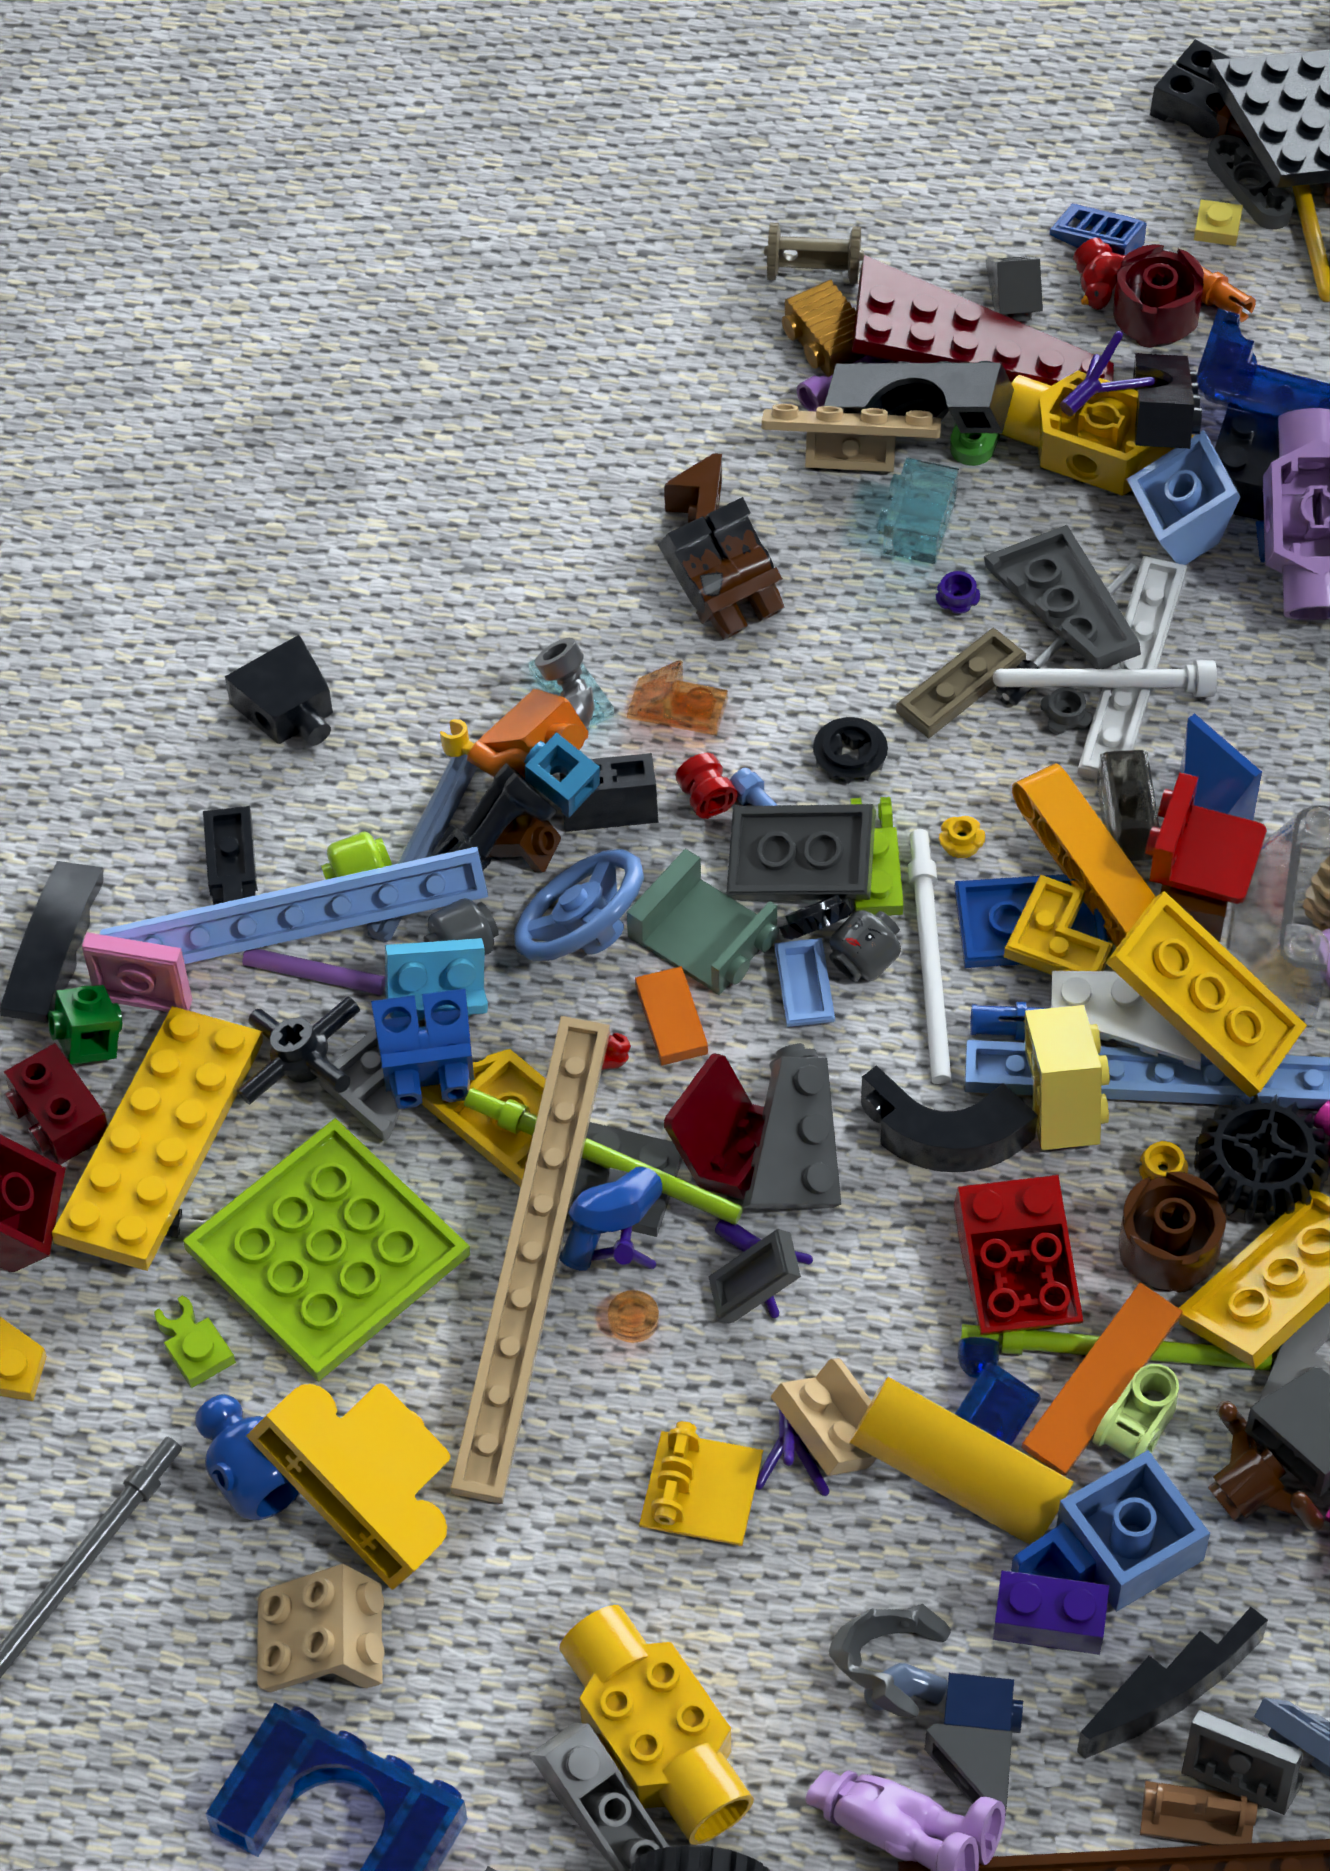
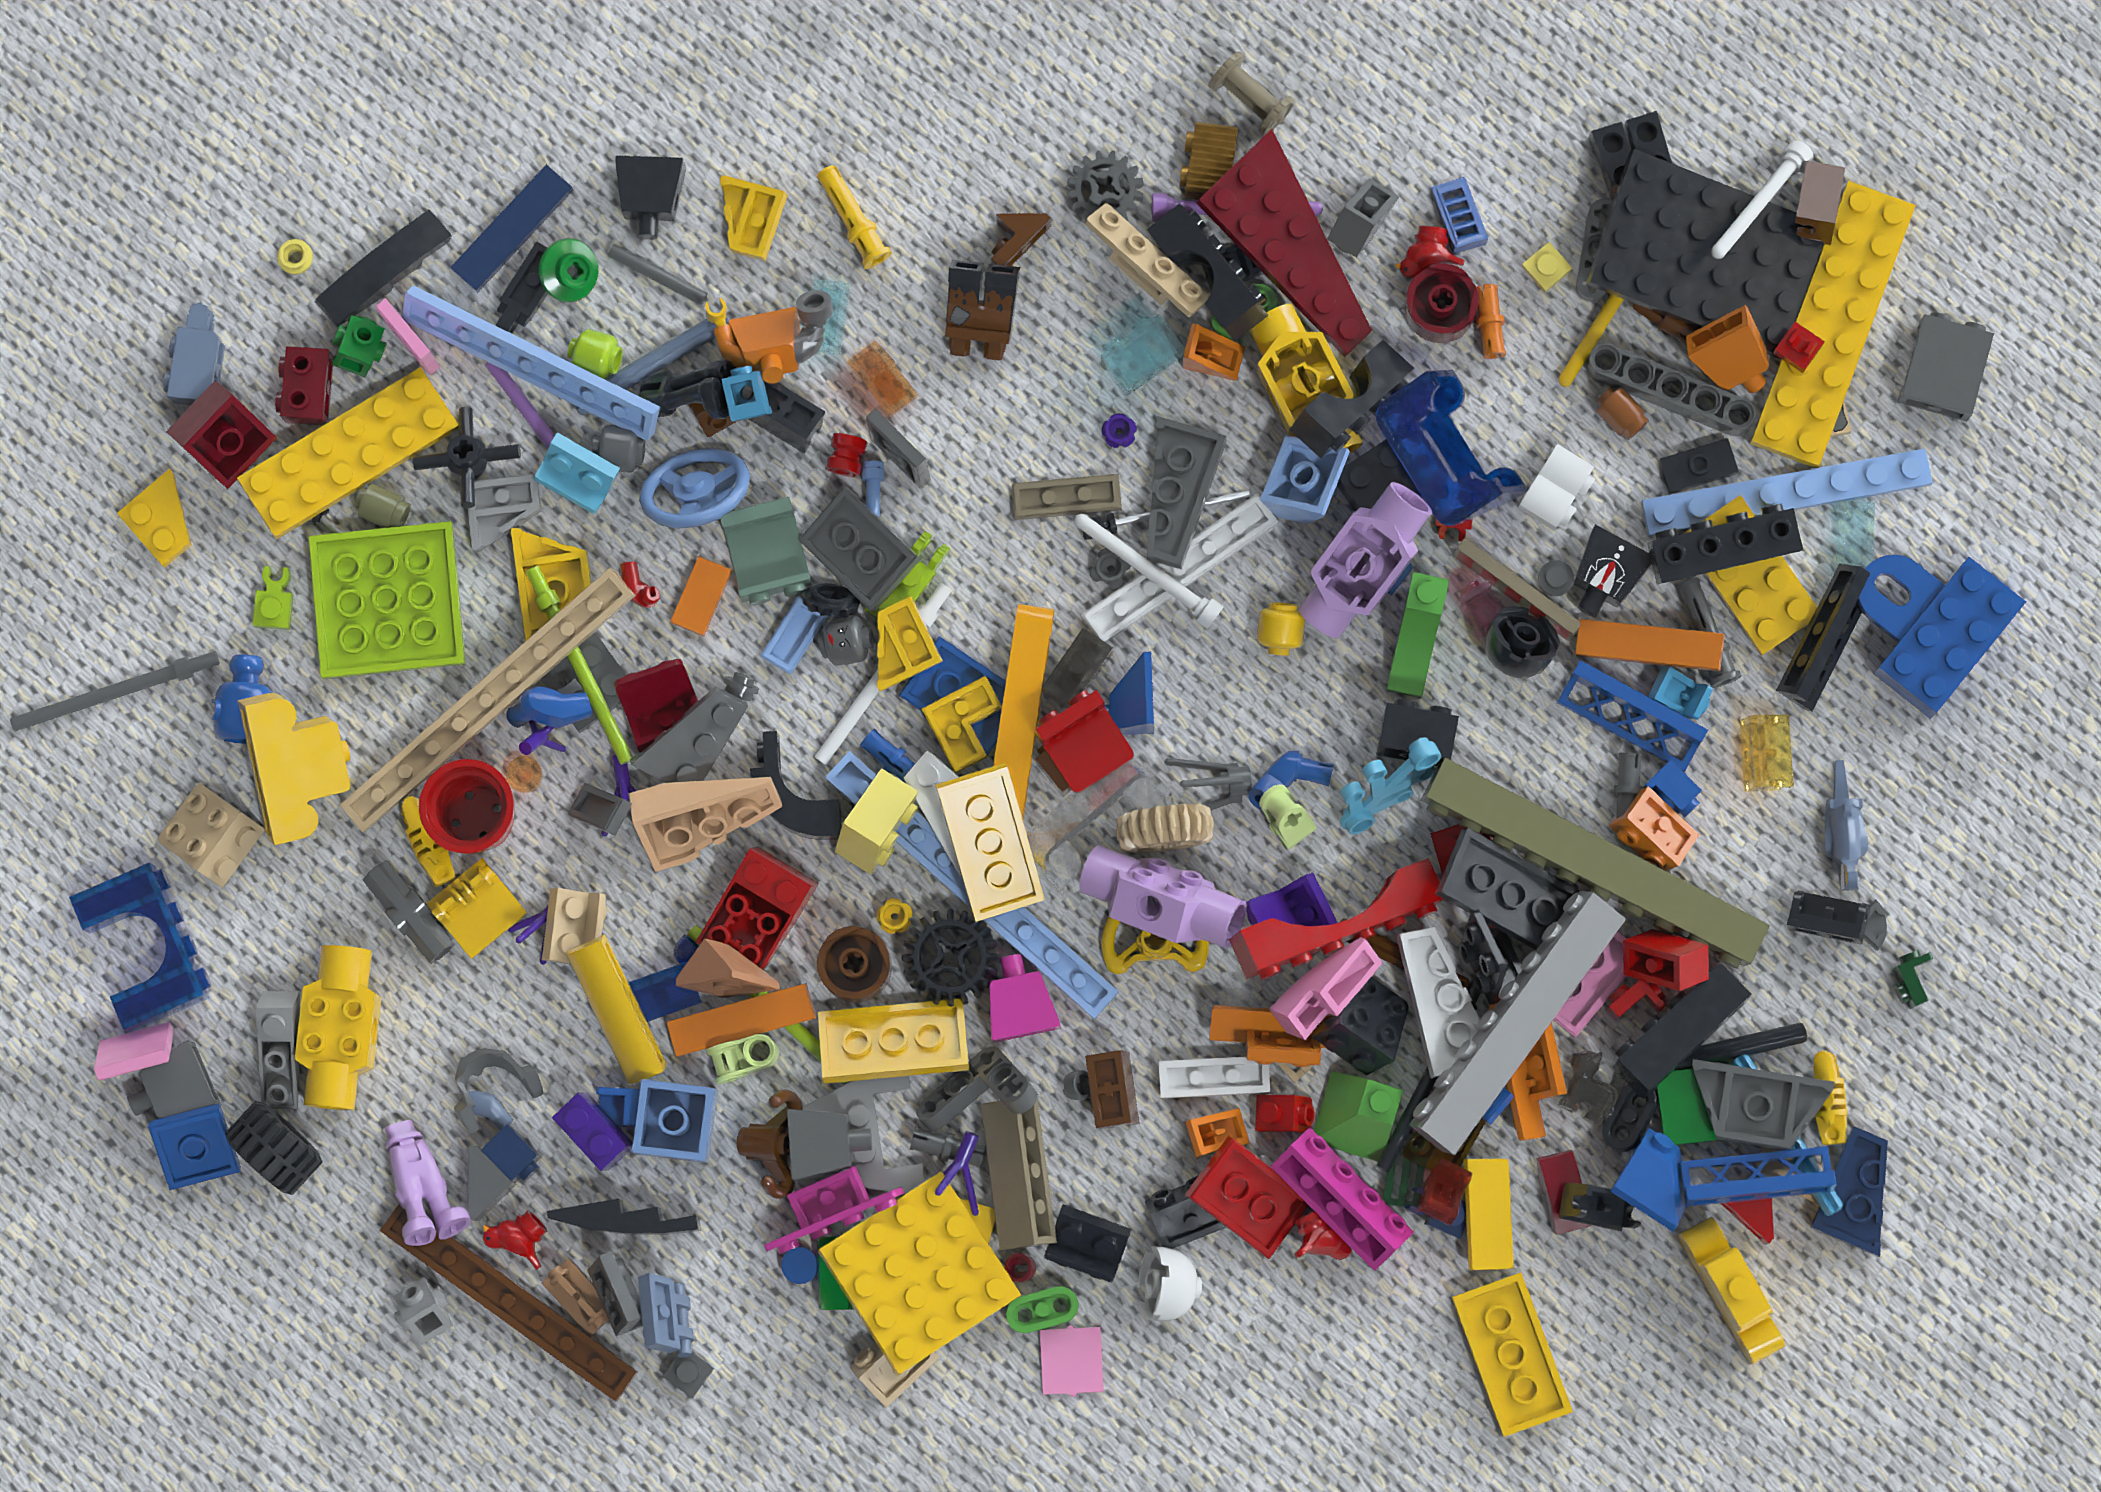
camera: 45 degrees right, 25 degrees up
(163, 825) = (512, 228): none -> dark blue tile
(241, 1160) = (382, 506): none -> olive brick
(261, 814) = (554, 267): none -> green piece
(358, 766) = (657, 274): none -> dark grey bar
(410, 652) = (751, 216): none -> yellow wing
(425, 1054) = (531, 514): blue hips -> none
(539, 593) = (860, 230): none -> yellow pin
(582, 1455) = (431, 856): none -> yellow hinge
(604, 1335) = (445, 800): none -> red piece
(628, 1544) = (408, 912): none -> dark grey piece
(737, 407) = (1113, 176): none -> dark grey gear
(763, 721) = (898, 449): none -> dark grey tile
(856, 734) = (947, 480): black gear -> none
(858, 1213) = (688, 816): none -> light nougat wedge
(930, 901) = (903, 644): none -> yellow wing
(958, 845) = (975, 616): yellow plate -> none
(982, 473) = (1212, 353): none -> orange slope
(1049, 1328) = (723, 972): none -> nougat slope
(1067, 1798) = (517, 1236): none -> red animal
(1092, 385) = (1312, 355): dark purple plant -> none
(1284, 644) = (1280, 628): none -> yellow head

